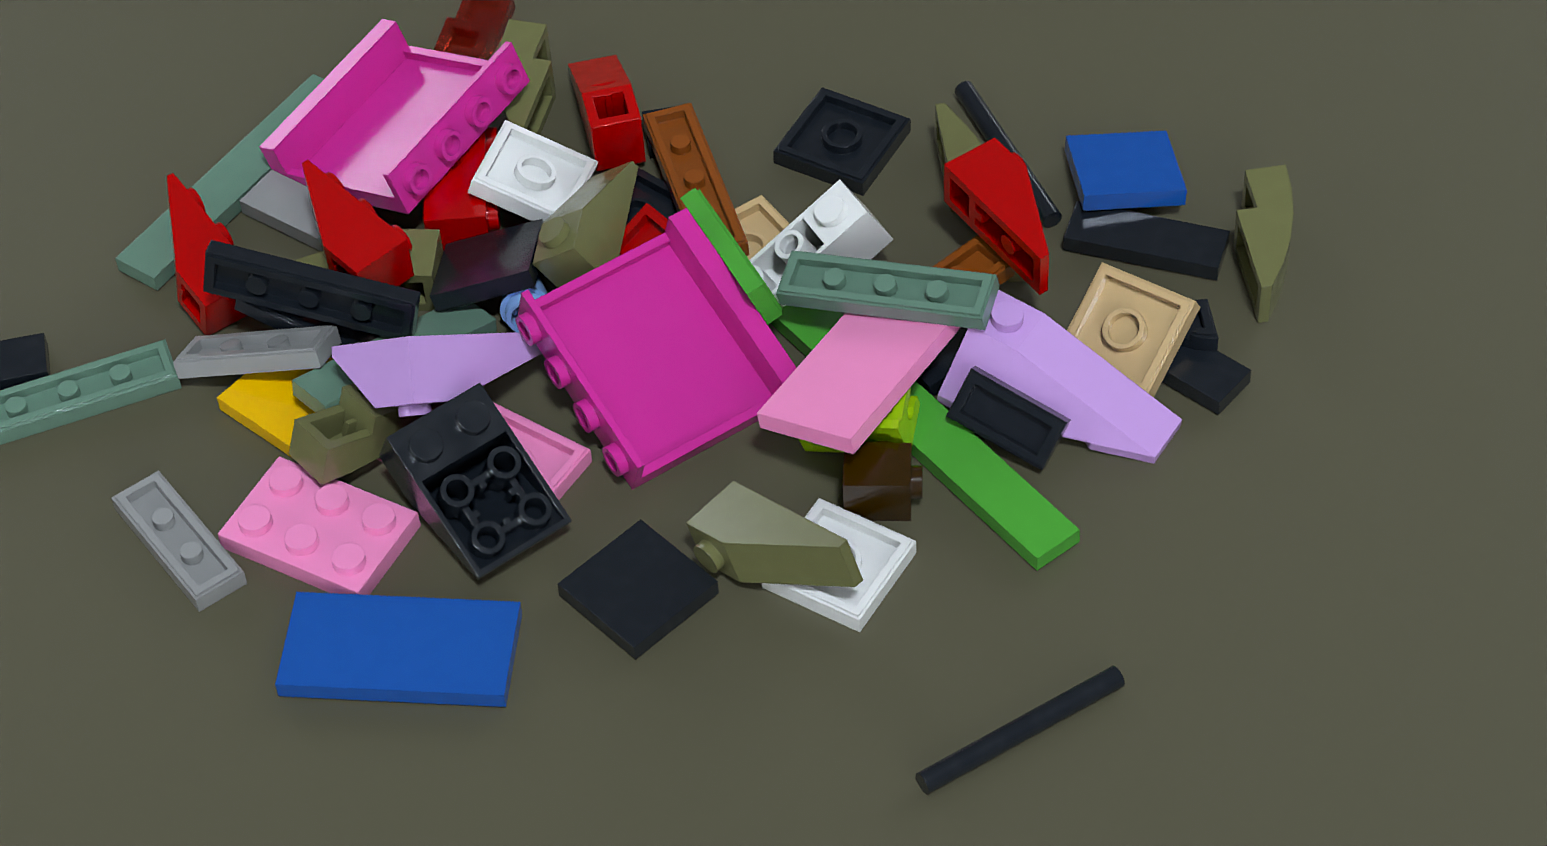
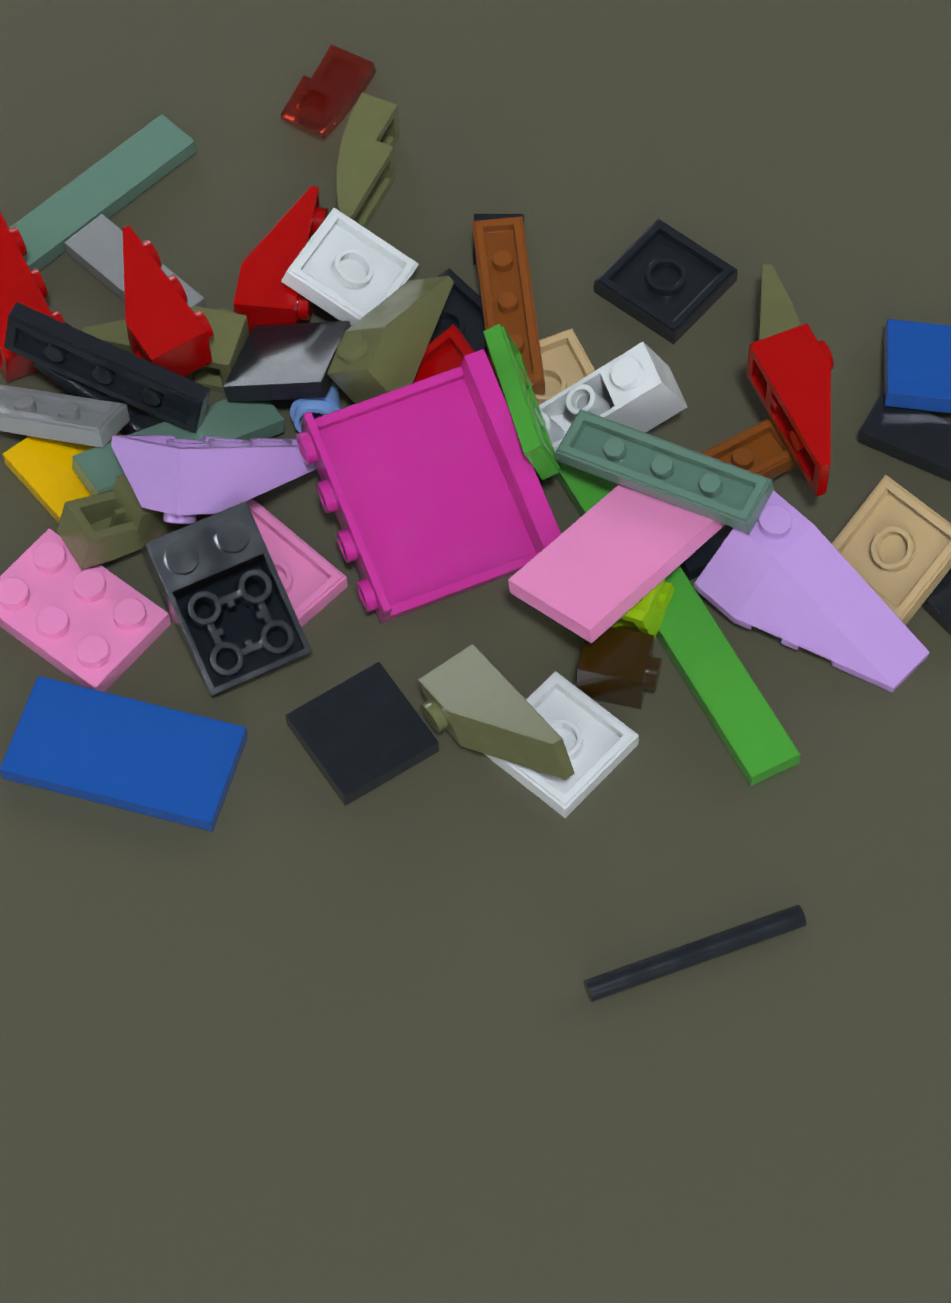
camera: 10 degrees right, 10 degrees up
(395, 117) = (227, 183): dark pink panel -> none
(608, 111) = (439, 208): red slope -> none
(991, 128) = (826, 324): black bar -> none
(1008, 417) = (756, 622): black tile -> none

